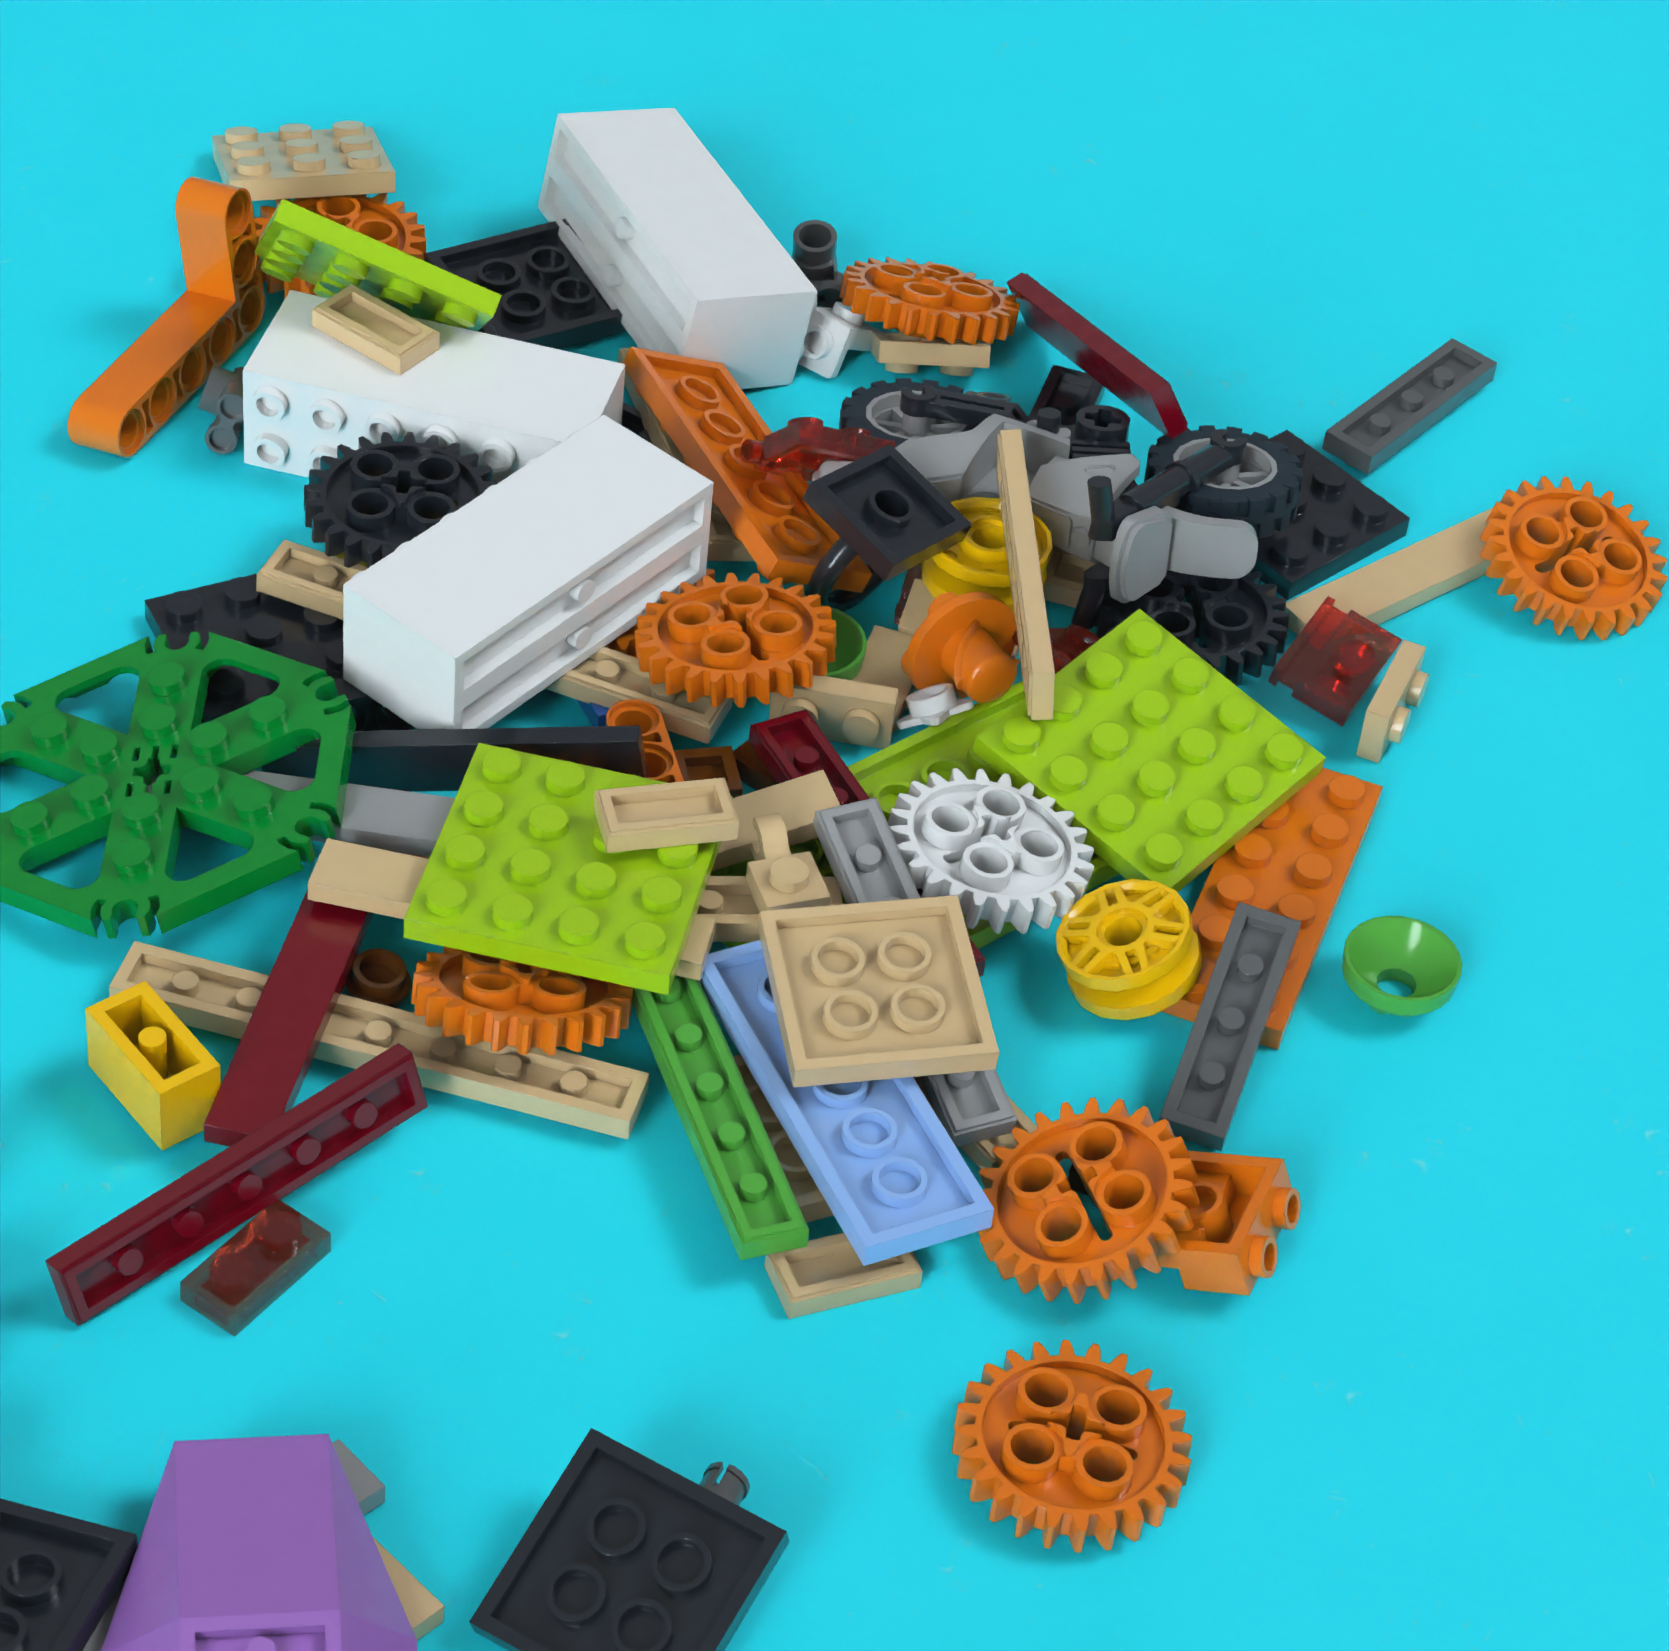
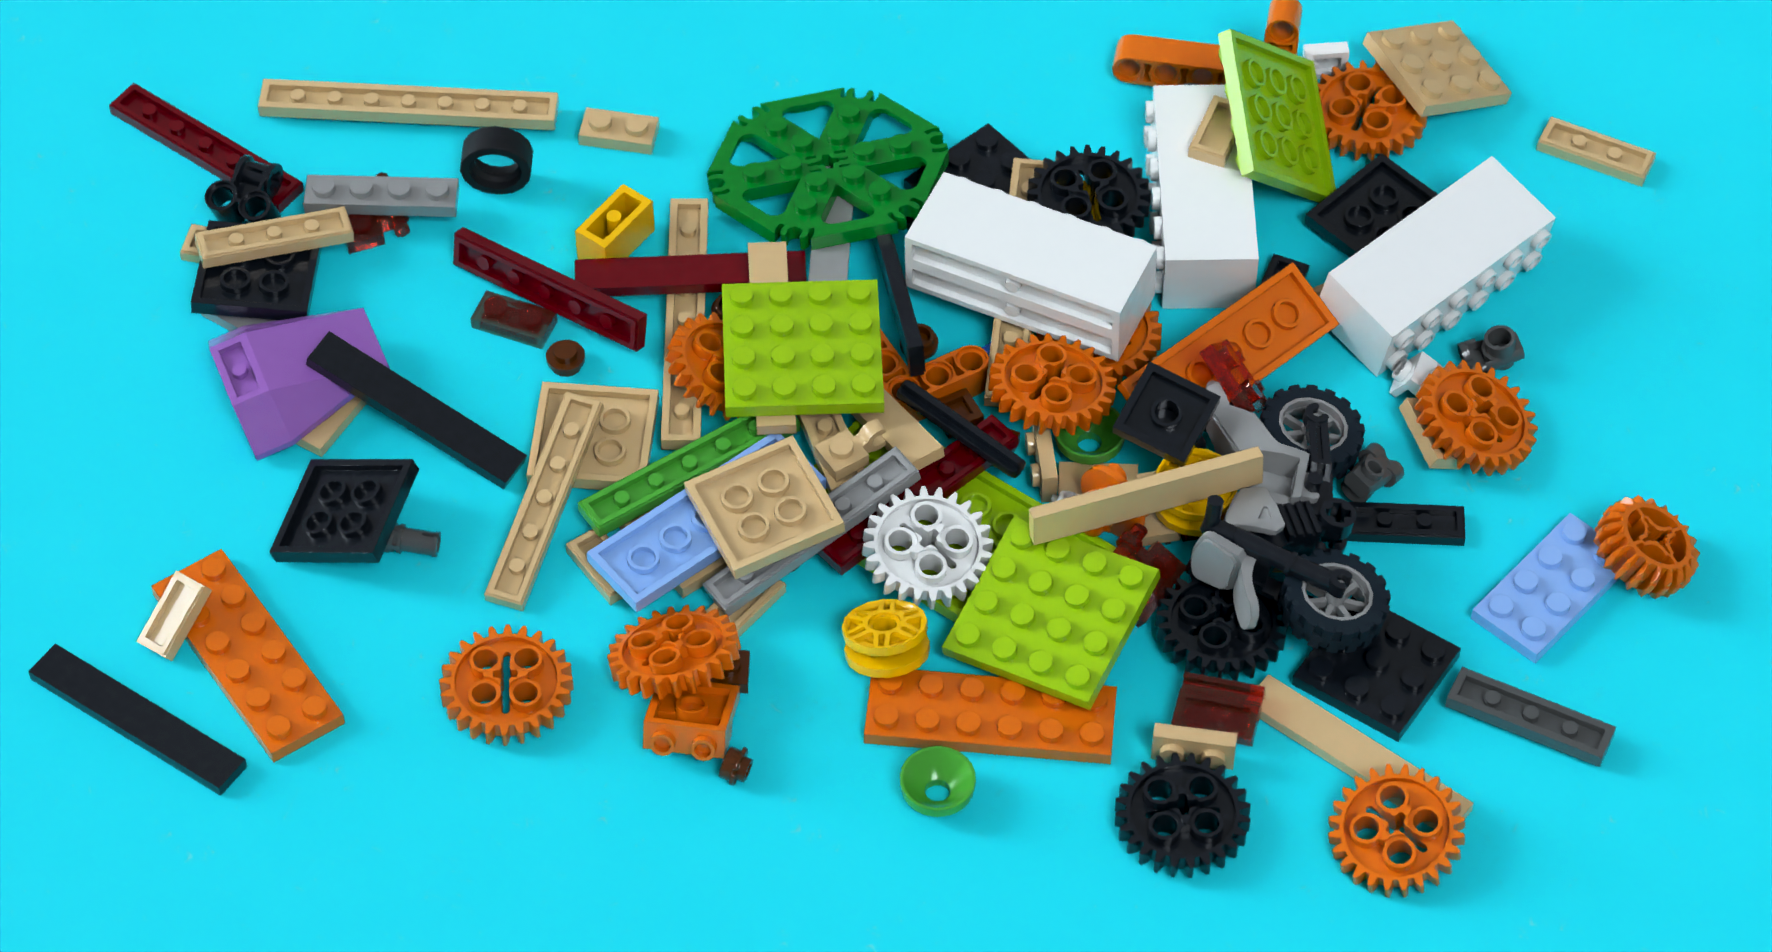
camera: 80 degrees right, 10 degrees up
(379, 1213) = (565, 357): none -> reddish brown plate
(437, 1424) = (416, 410): none -> black tile
(502, 99) = (1596, 151): none -> tan tile
(574, 1214) = (620, 439): none -> tan plate
(666, 815) = (839, 369): tan tile -> none
(705, 1299) = (544, 501): none -> tan tile
(796, 745) = (961, 429): none -> black axle
(1099, 355) = (1436, 507): dark red tile -> none
(1193, 227) = (1646, 547): none -> orange gear
(1205, 337) = (1547, 590): none -> light blue plate
(1229, 1025) = (842, 698): dark grey plate -> none
(1314, 1191) = (736, 765): none -> reddish brown plate
(1548, 750) = (1182, 815): none -> black gear

